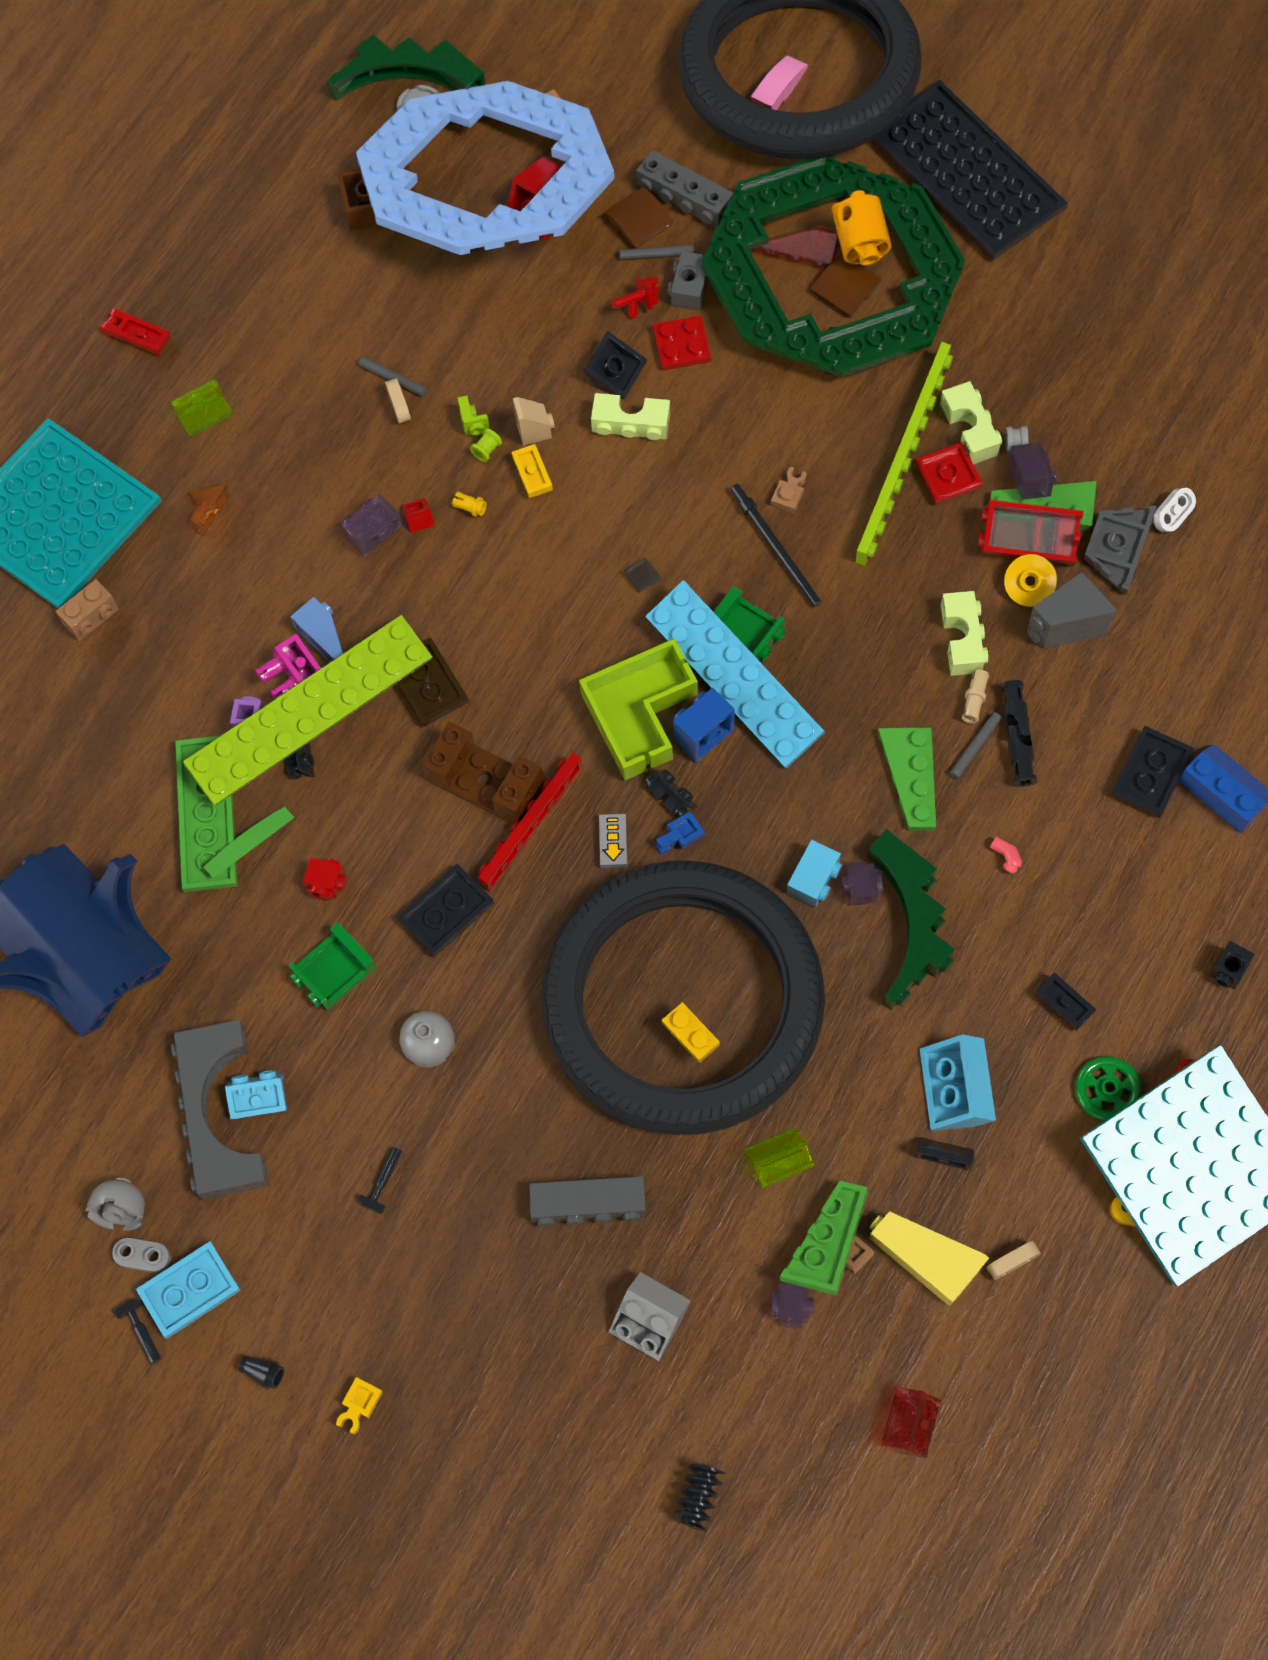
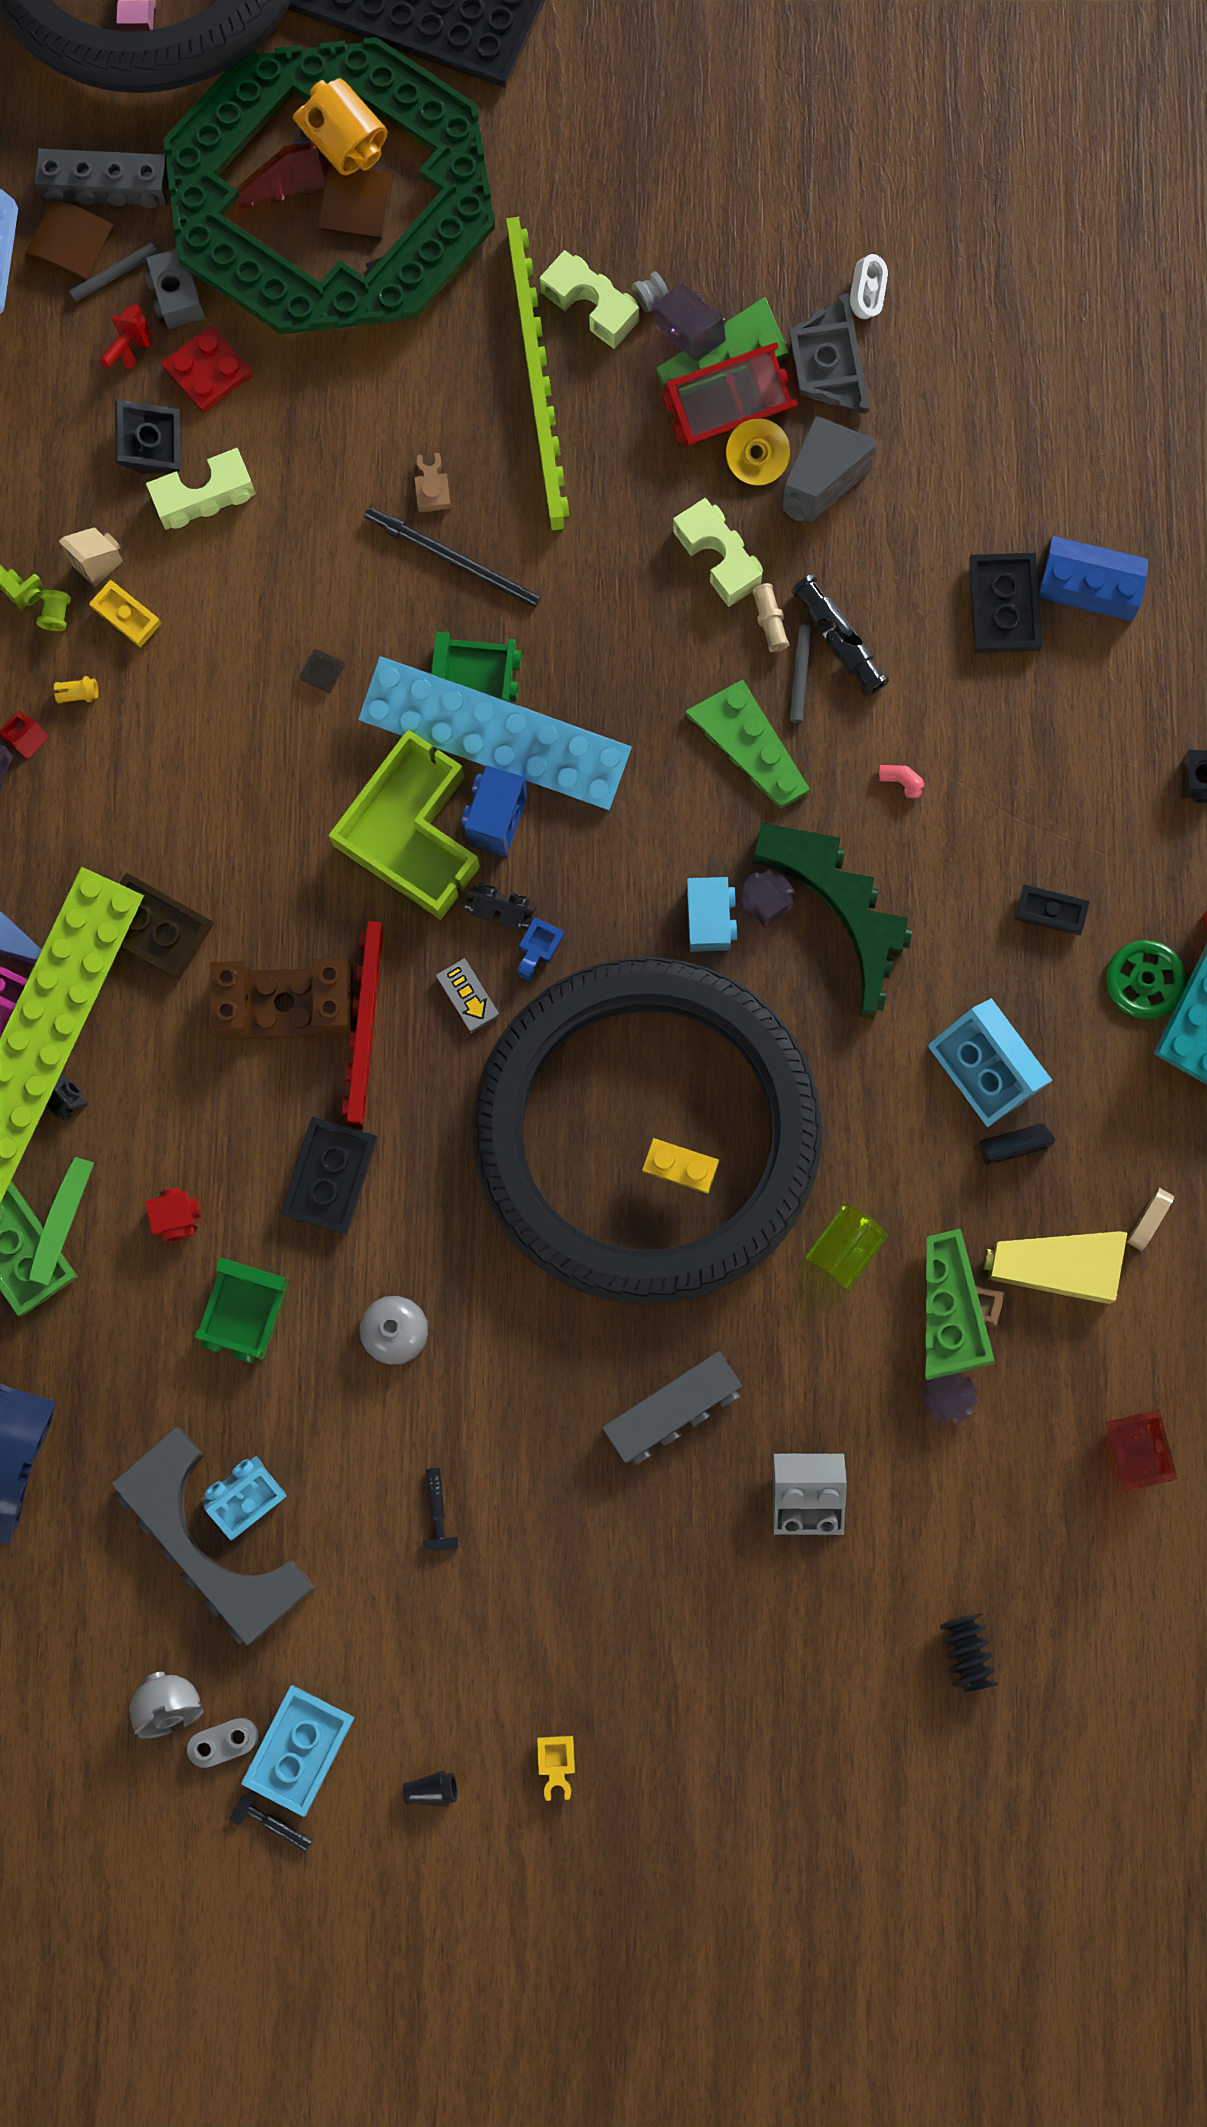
camera: 30 degrees left, 10 degrees up
(948, 473) = (597, 371): red plate -> none

